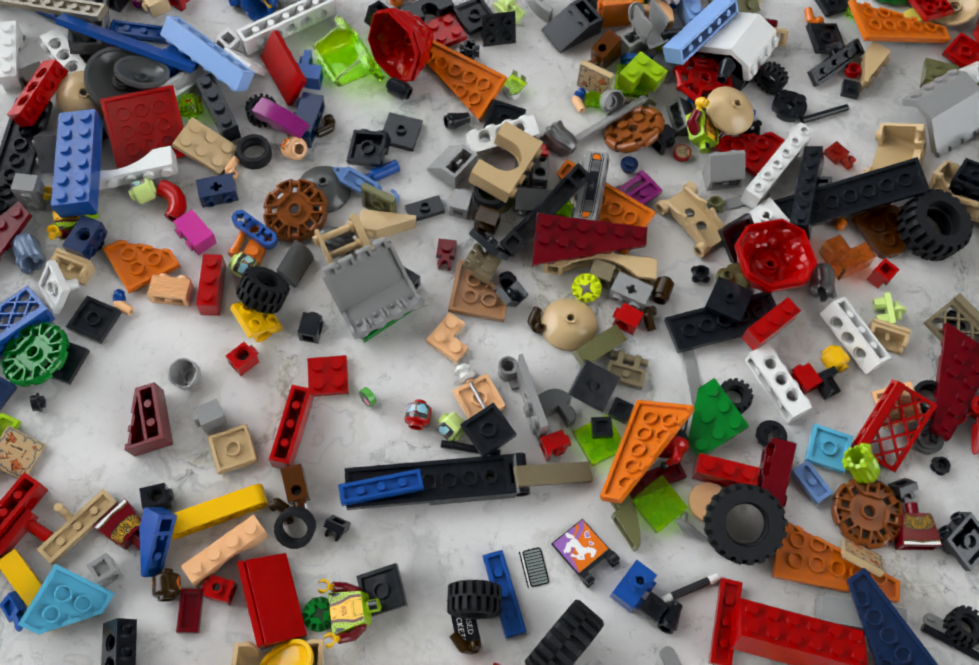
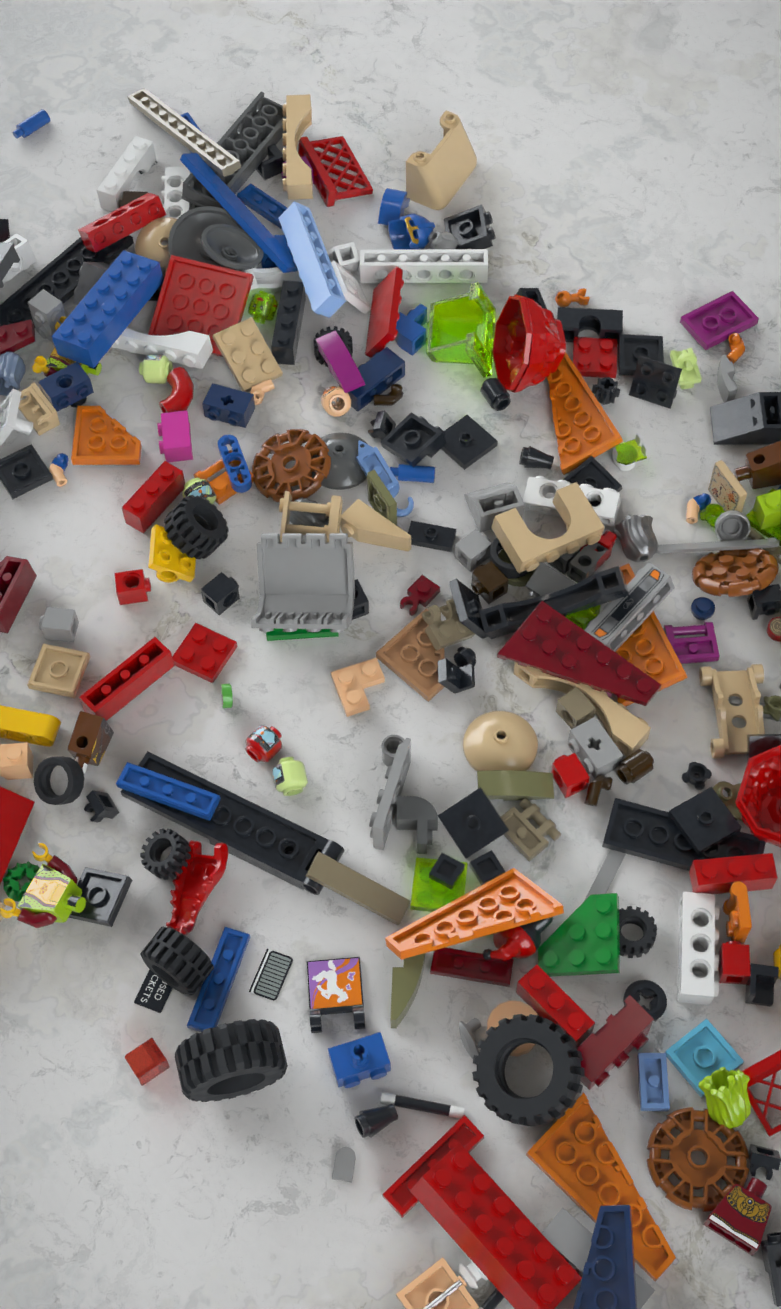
camera: 40 degrees right, 5 degrees down
(170, 290) = (112, 481): light nougat brick -> none
(184, 373) = (65, 569): light grey hair -> none
(254, 140) = (290, 372): black tyre -> none
(280, 505) = (60, 749): dark brown arm -> none
(295, 263) = (251, 520): dark grey brick -> none
(339, 150) = (381, 425): none -> black tile
(397, 527) = (176, 858): none -> black tyre
(442, 538) = (195, 885): none -> red animal
(464, 447) = (292, 809): black bar -> none
(465, 646) = (139, 1005): dark brown arm -> none
(476, 393) = (340, 765): light nougat plate -> none
(488, 430) = (319, 799): black plate -> none
(533, 320) = (461, 719): dark brown arm -> none
(554, 444) = (385, 859): red brick -> none
(584, 279) = (555, 719): neon yellow gear -> none
(653, 607) = (362, 1094): black tile -> none
(659, 504) = (452, 992): clear neon green plate -> none
(796, 349) = (738, 912): none -> orange plate
(862, 557) = (646, 1198): tan tile -> none

